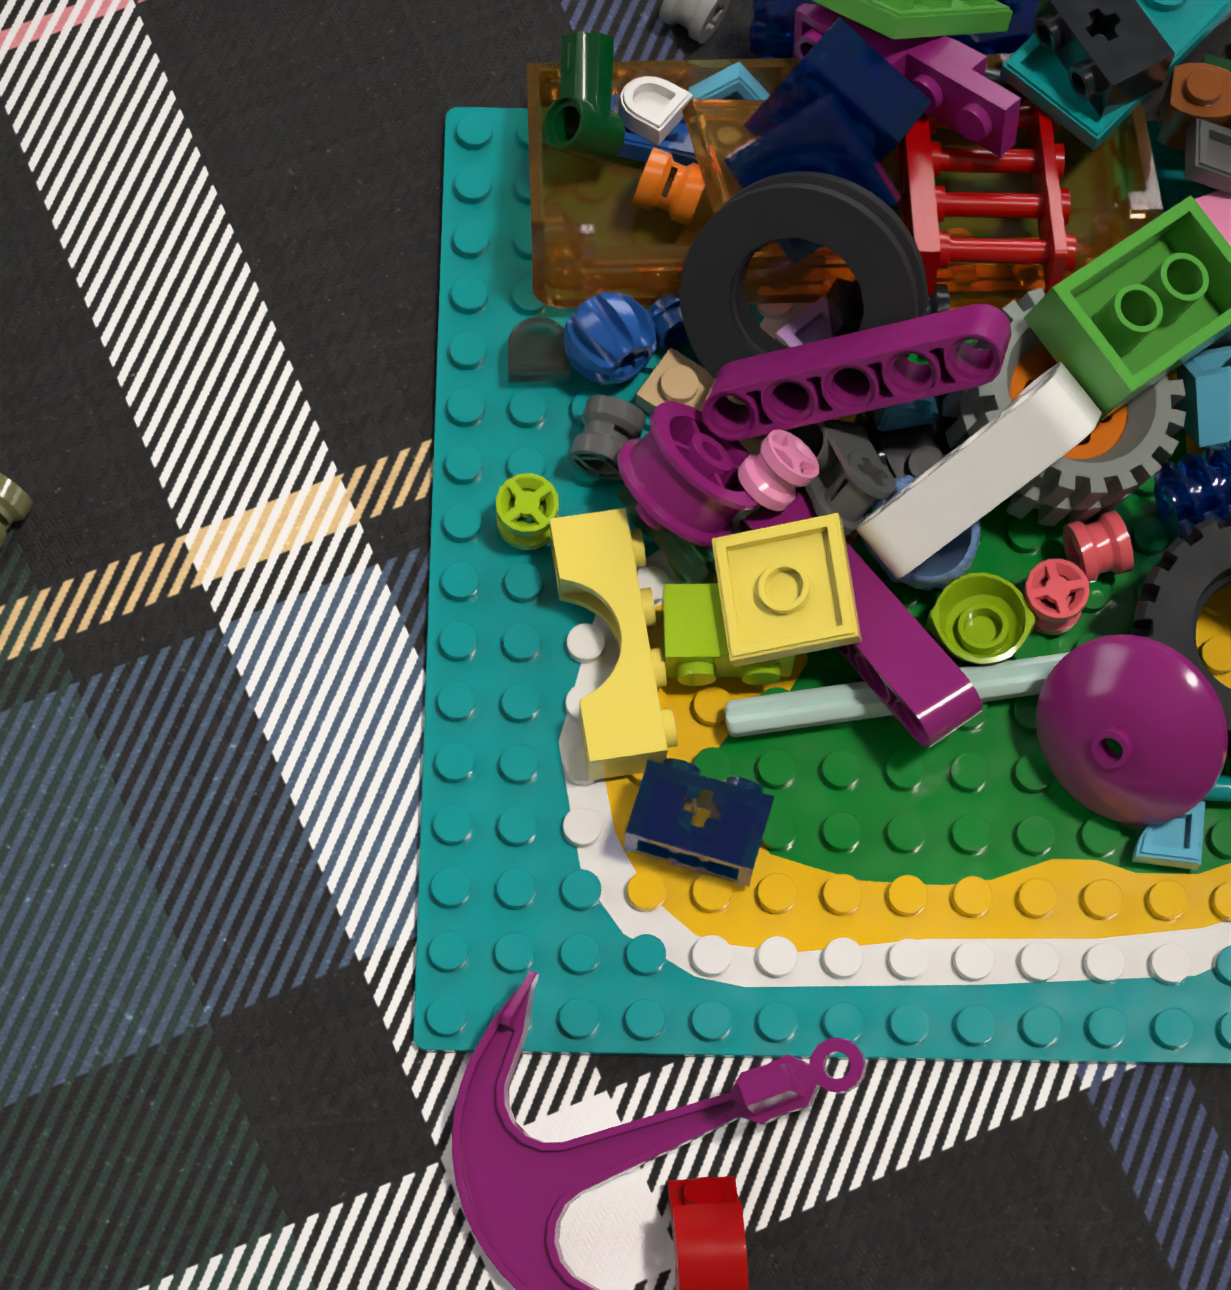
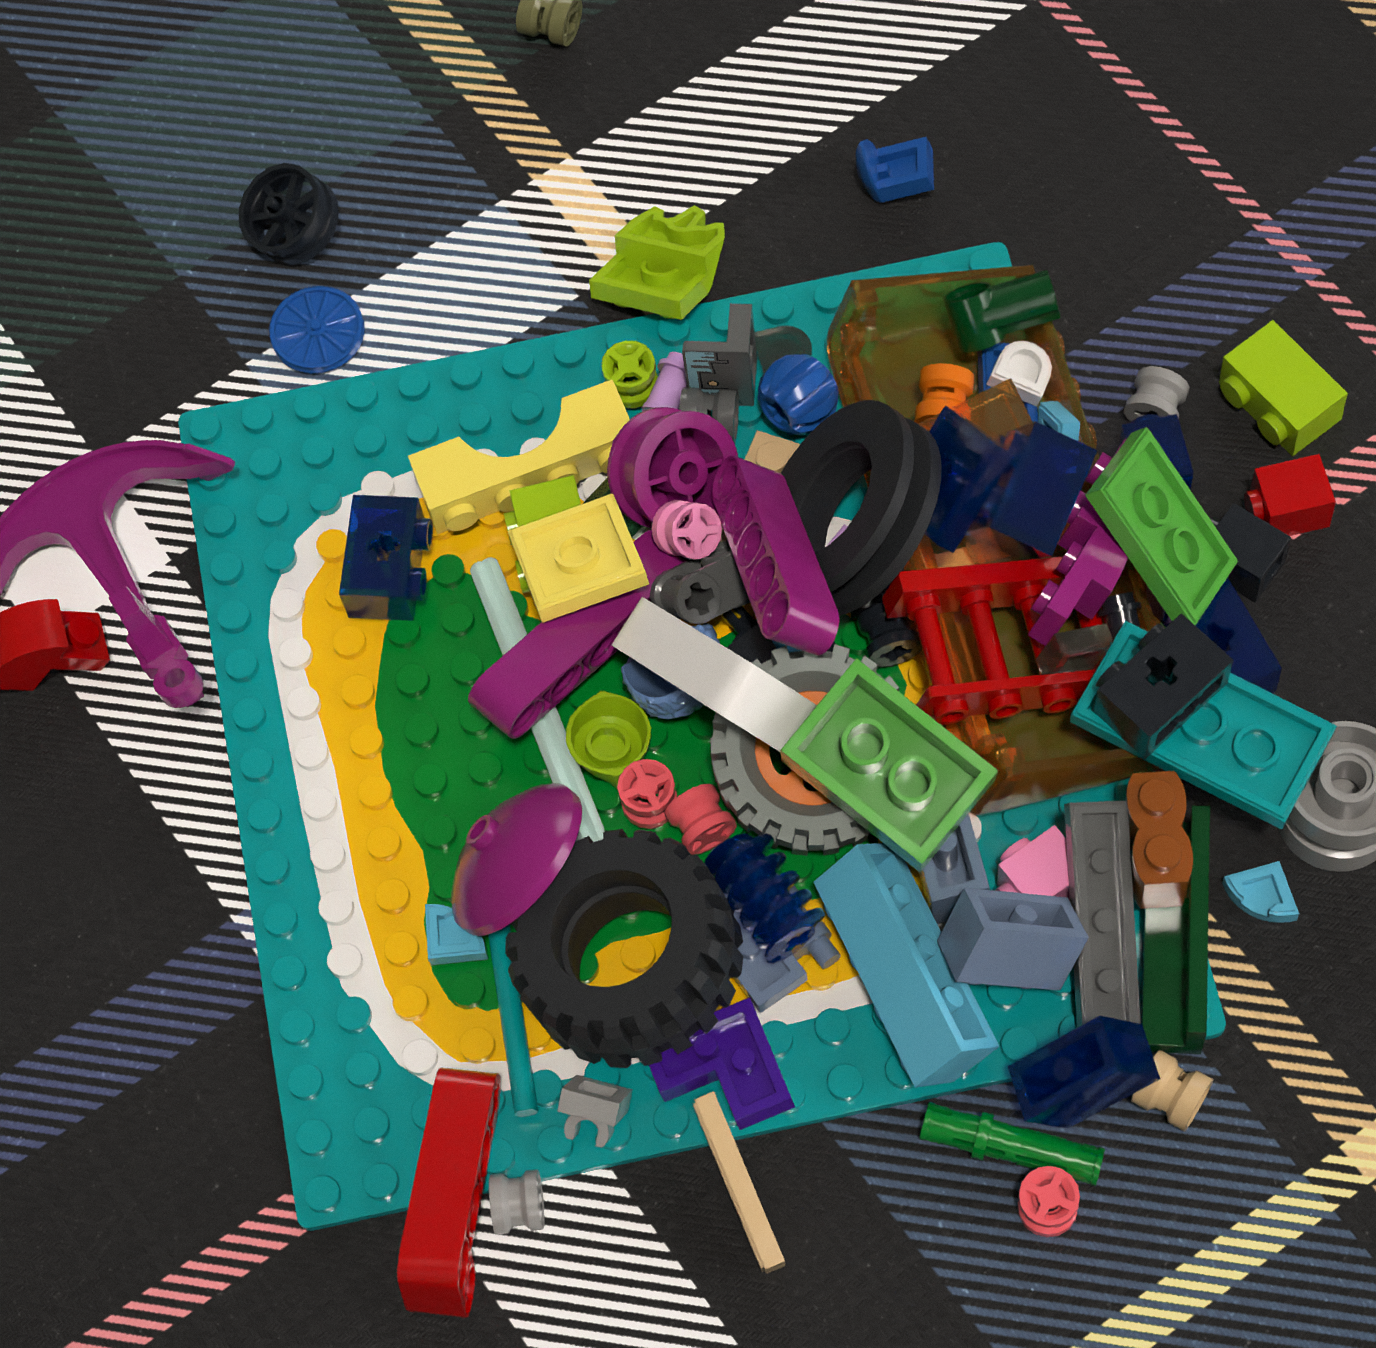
camera: 90 degrees right, 5 degrees down
(184, 861) = (304, 232): none -> black wheel
(330, 186) = (895, 169): none -> blue plate
(343, 863) = (316, 329): none -> blue wheel
(380, 452) = (661, 263): none -> lime plate
(558, 382) = (728, 363): none -> dark grey panel
(568, 479) = (669, 383): none -> lavender pin
(1030, 121) = (1075, 650): none -> clear smoke tile

